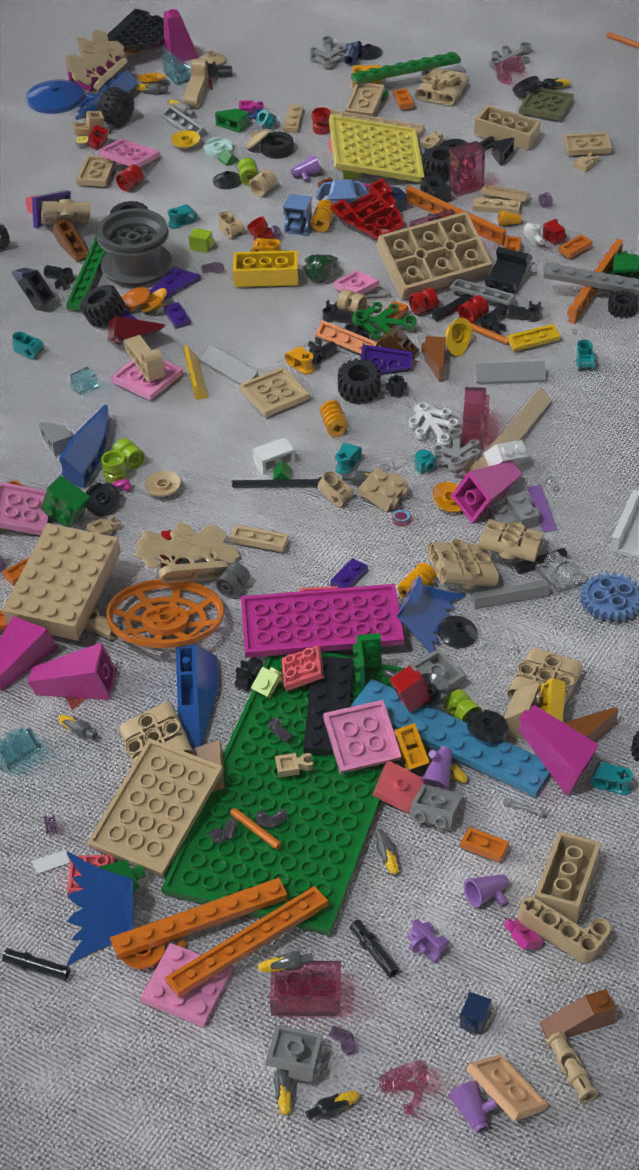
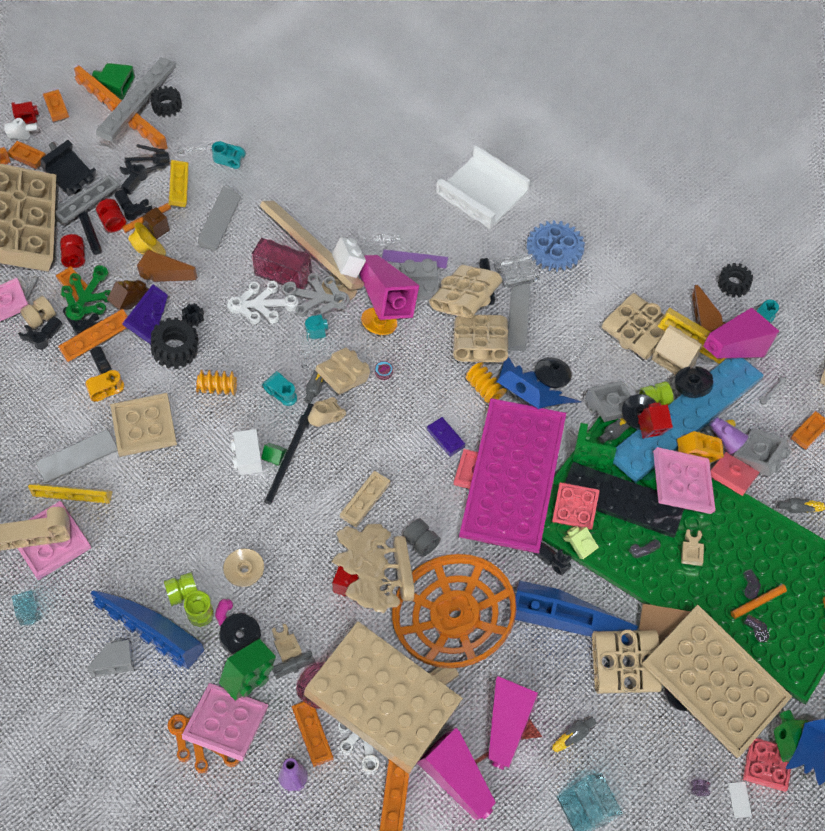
camera: 75 degrees left, 15 degrees up
(480, 336) = (156, 222): none -> reddish brown brick
(553, 317) = (160, 158): none -> black plant

